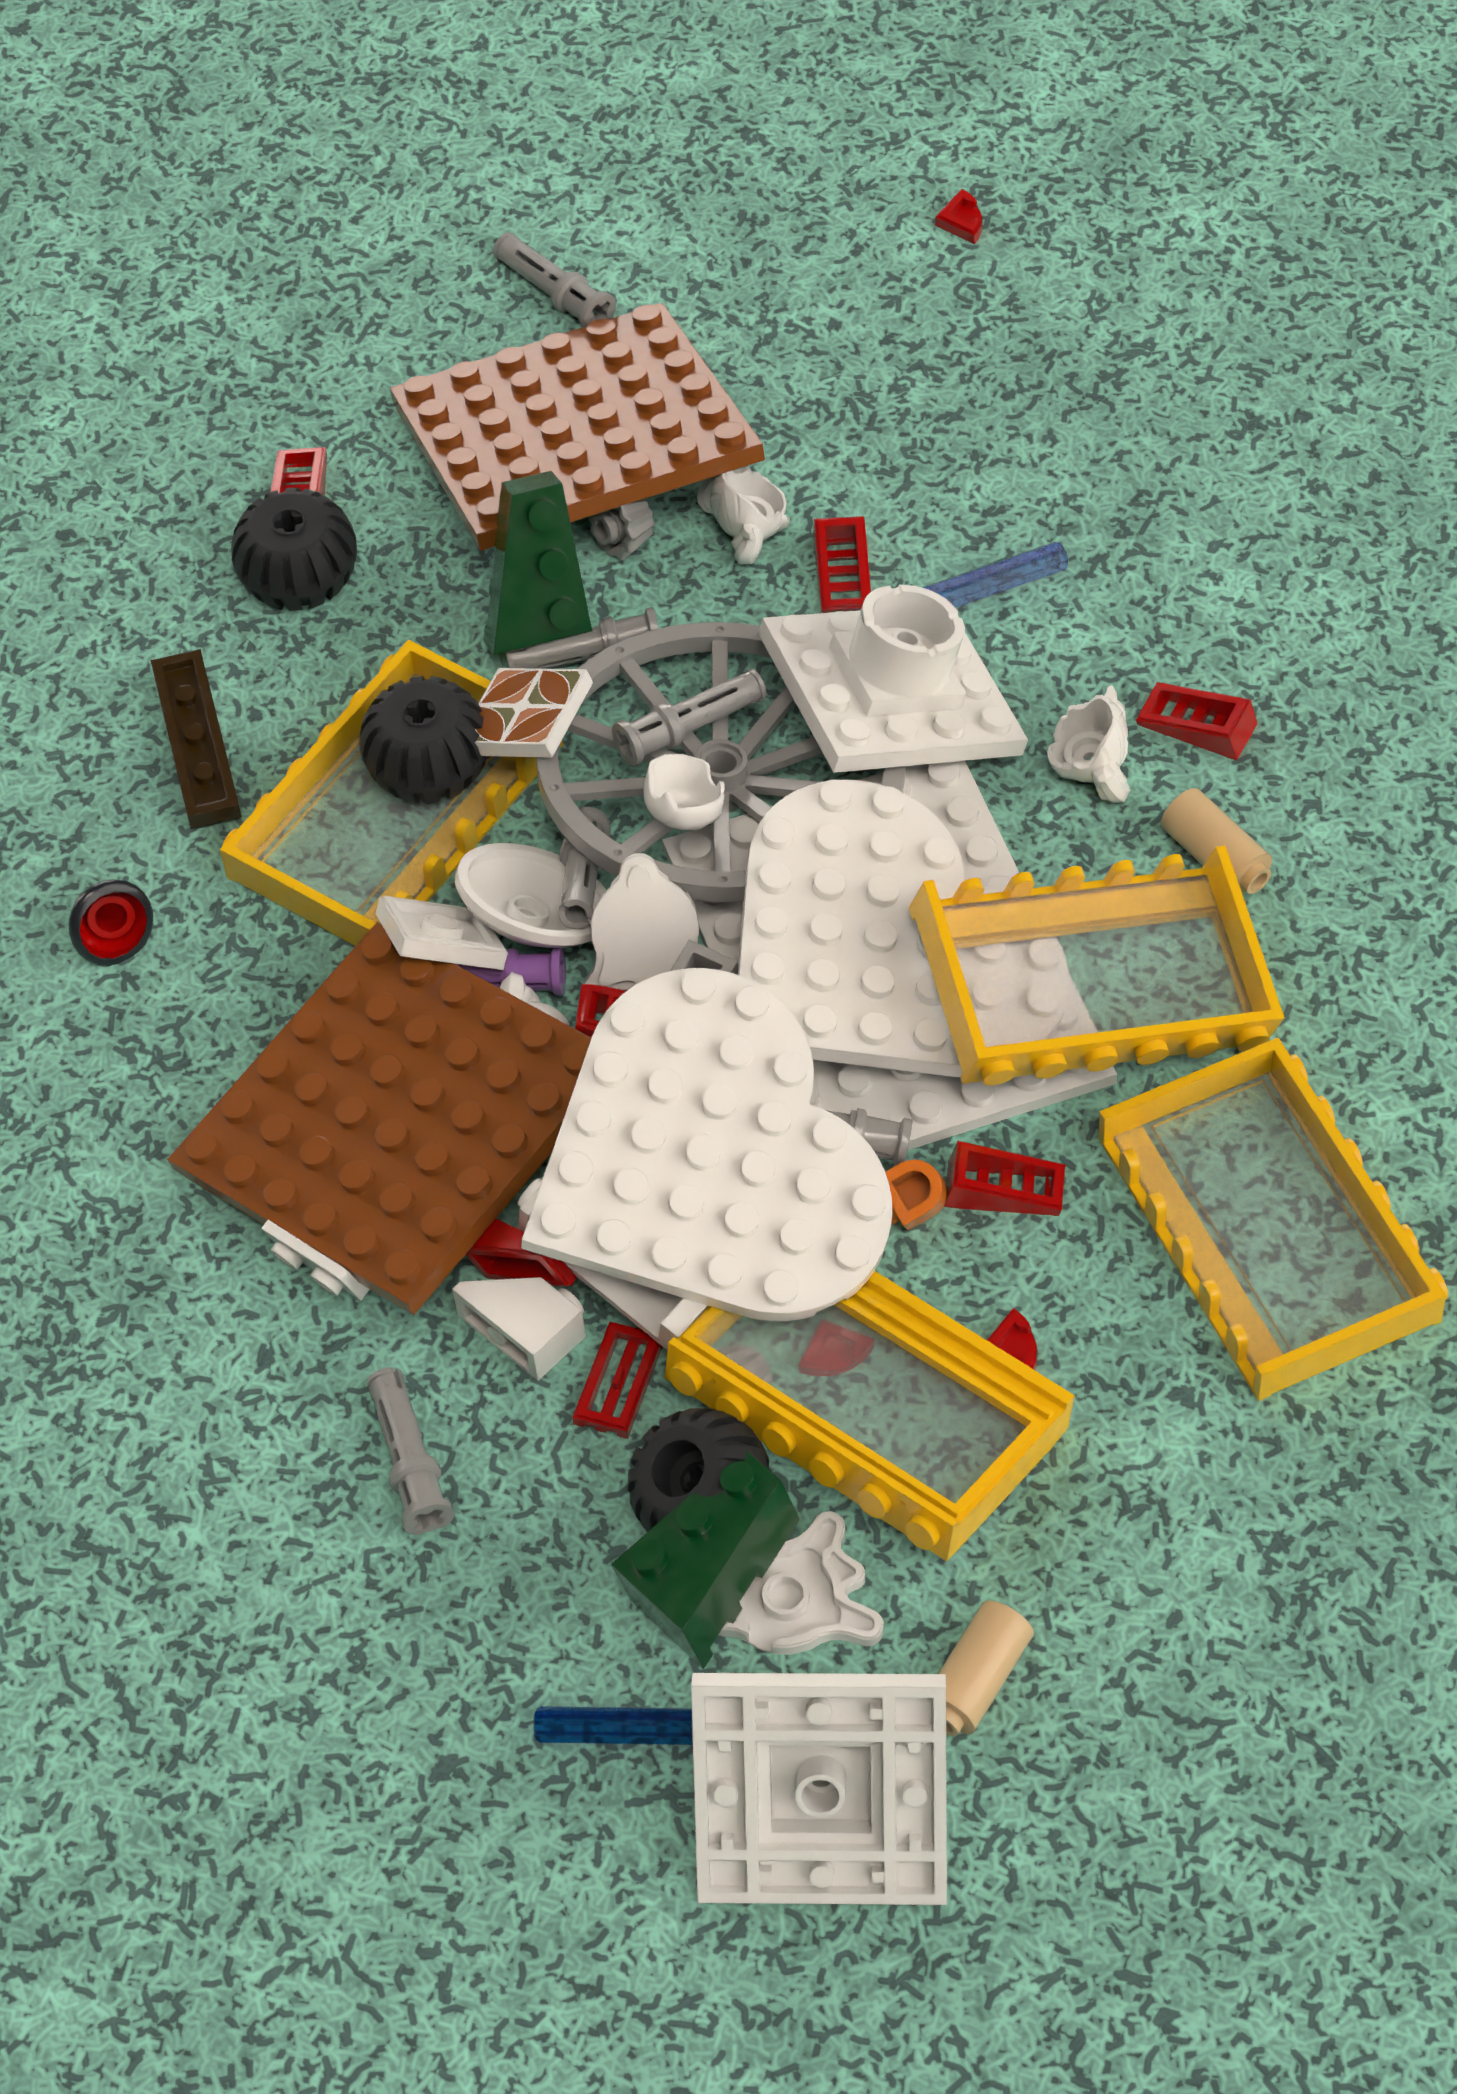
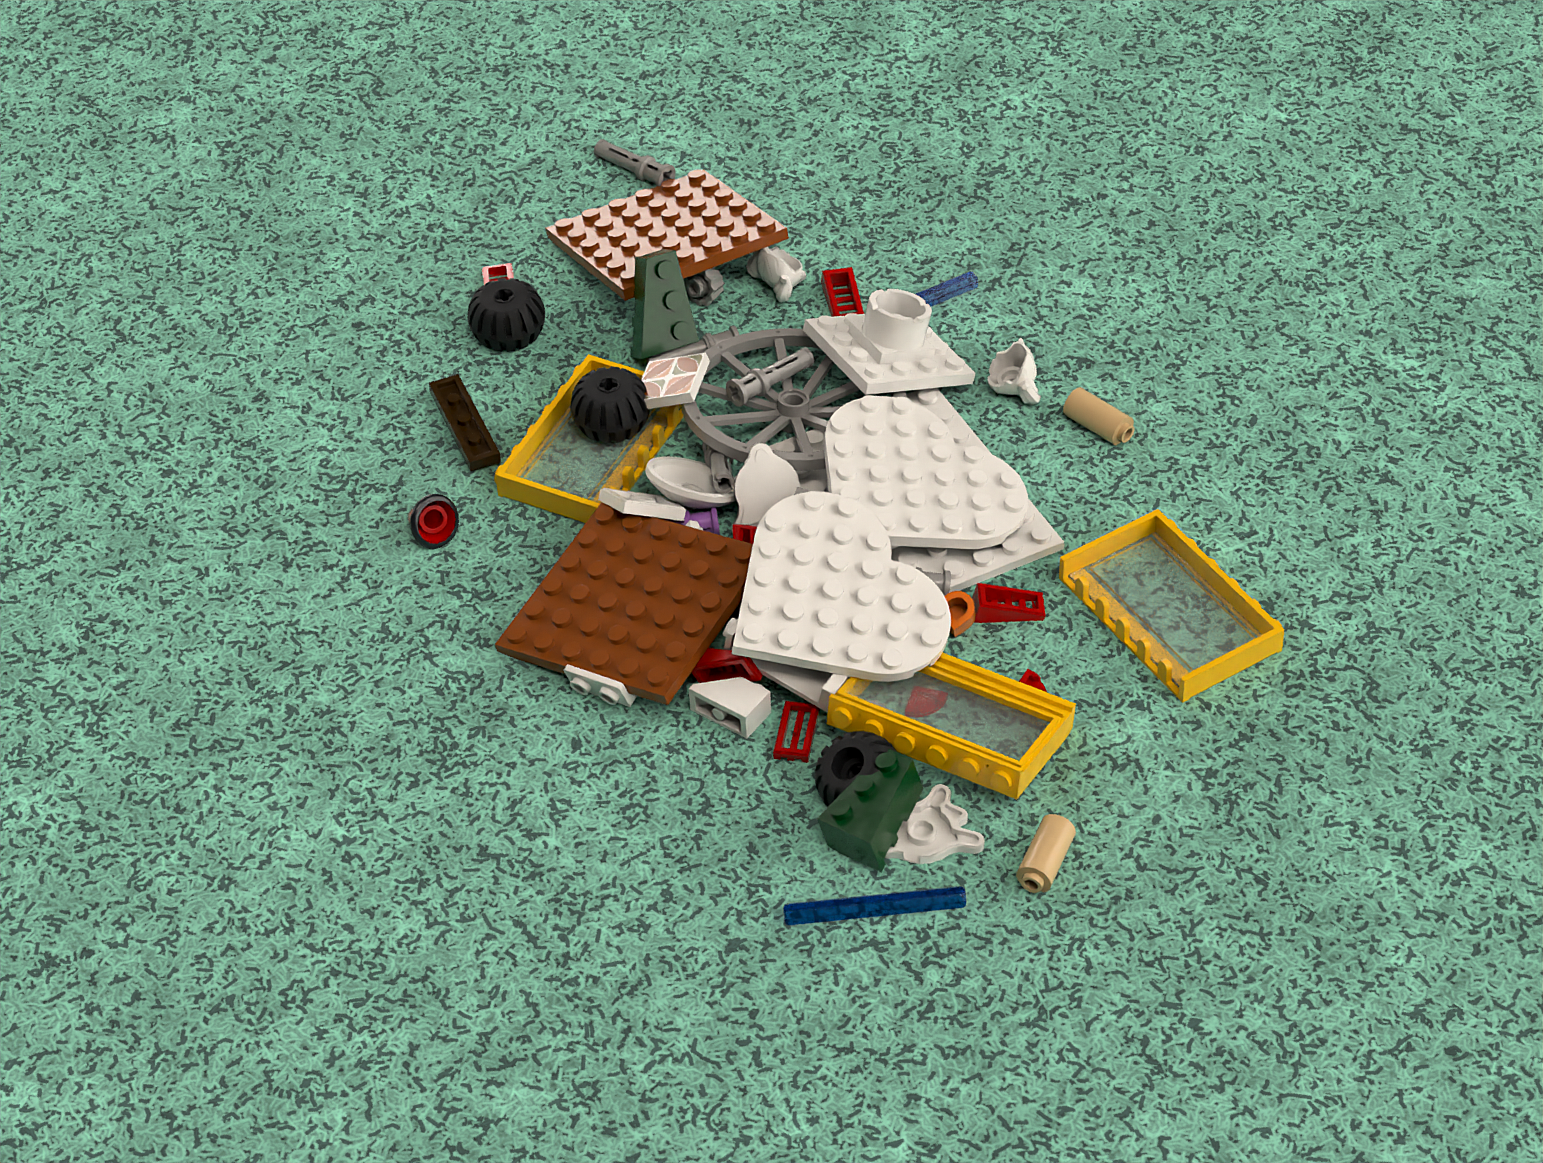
camera: 10 degrees left, 10 degrees down
(413, 1470) = (682, 790): light grey pin -> none
(682, 792) = (776, 411): white hair -> none
(820, 1788) = (976, 946): white piece -> none
(961, 217) = (875, 110): red tile -> none
(1097, 969) = (1044, 481): clear window -> none
(1224, 736) = (1085, 355): red slope -> none

